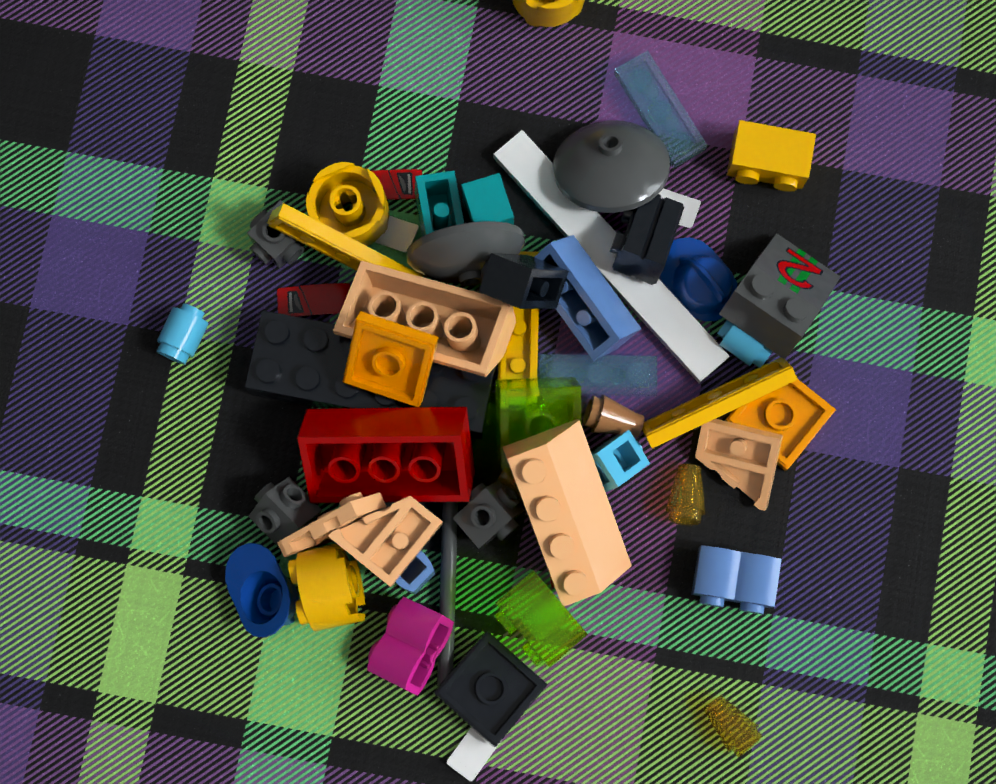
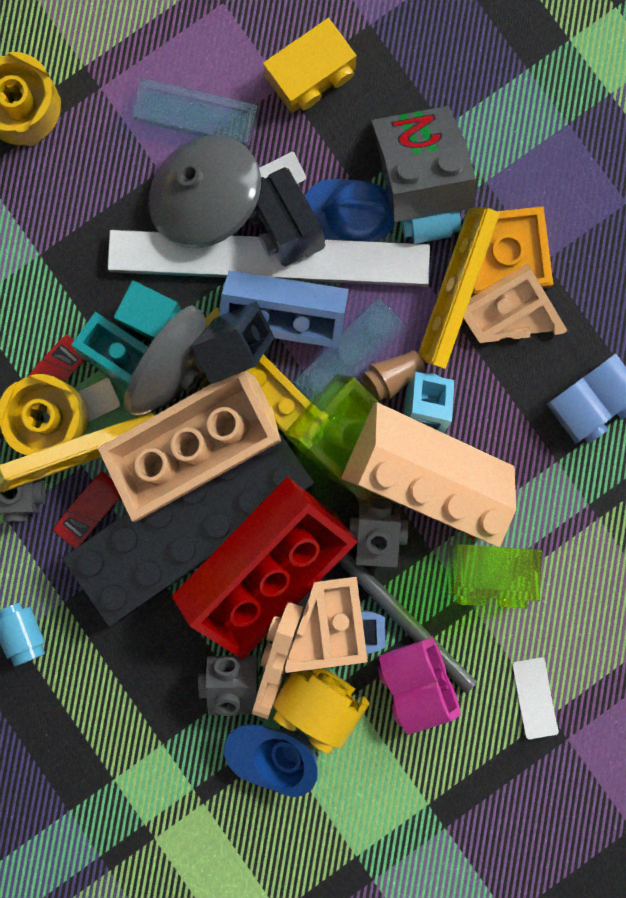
camera: 40 degrees left, 5 degrees up
(390, 359) = (197, 499): light orange tile -> none
(490, 688) = (505, 656): black tile -> none
(687, 496) = (502, 376): clear yellow cone -> none

